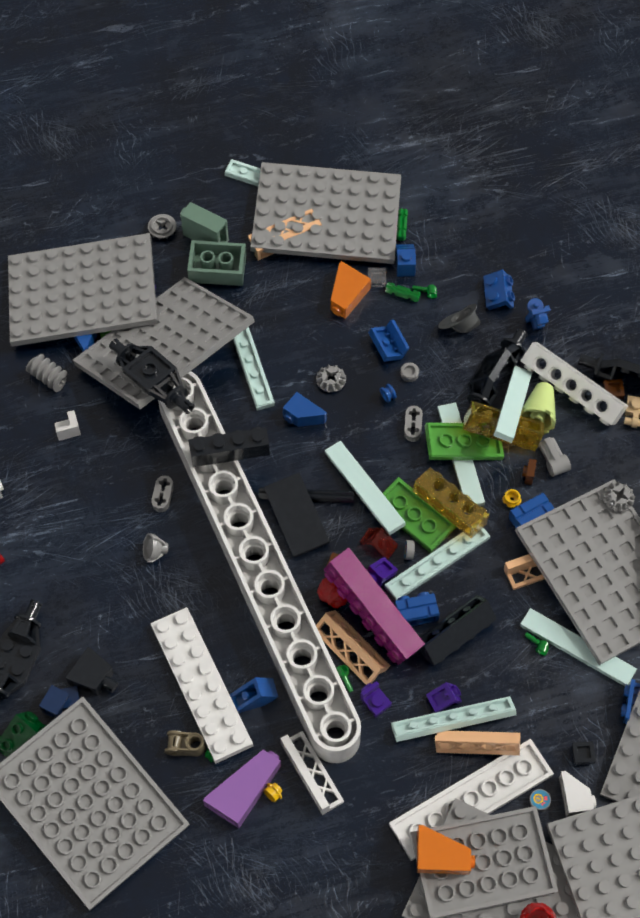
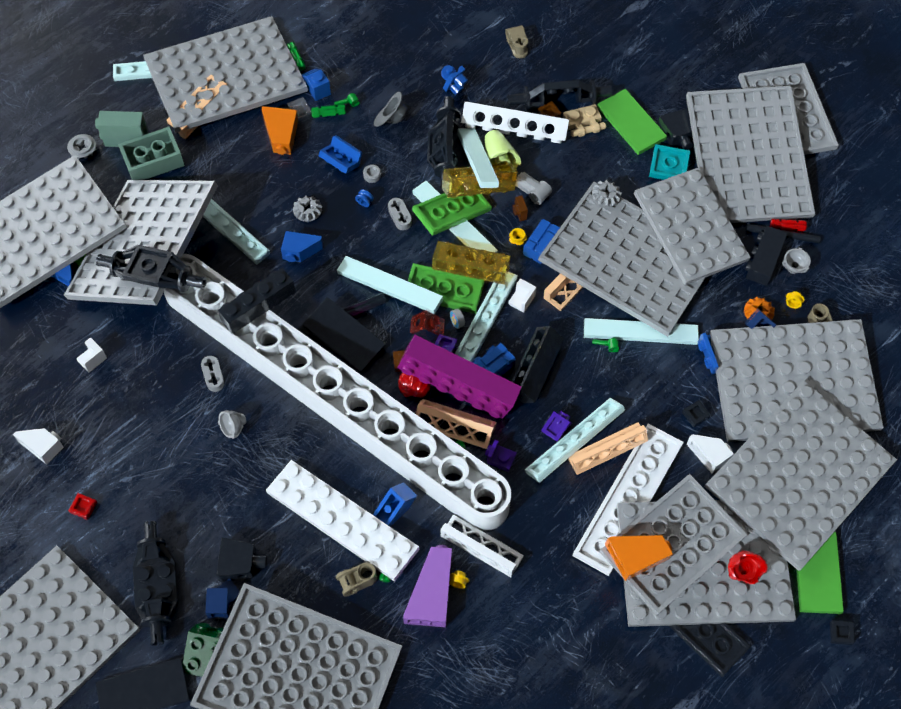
camera: 30 degrees left, 0 degrees up
(47, 372) = (44, 317): light grey piece -> none
(484, 558) = (523, 295): none -> white panel
(498, 290) = (408, 74): blue bracket -> none
(540, 799) = (682, 469): tile -> none
(624, 303) = (518, 41): none -> dark tan piece

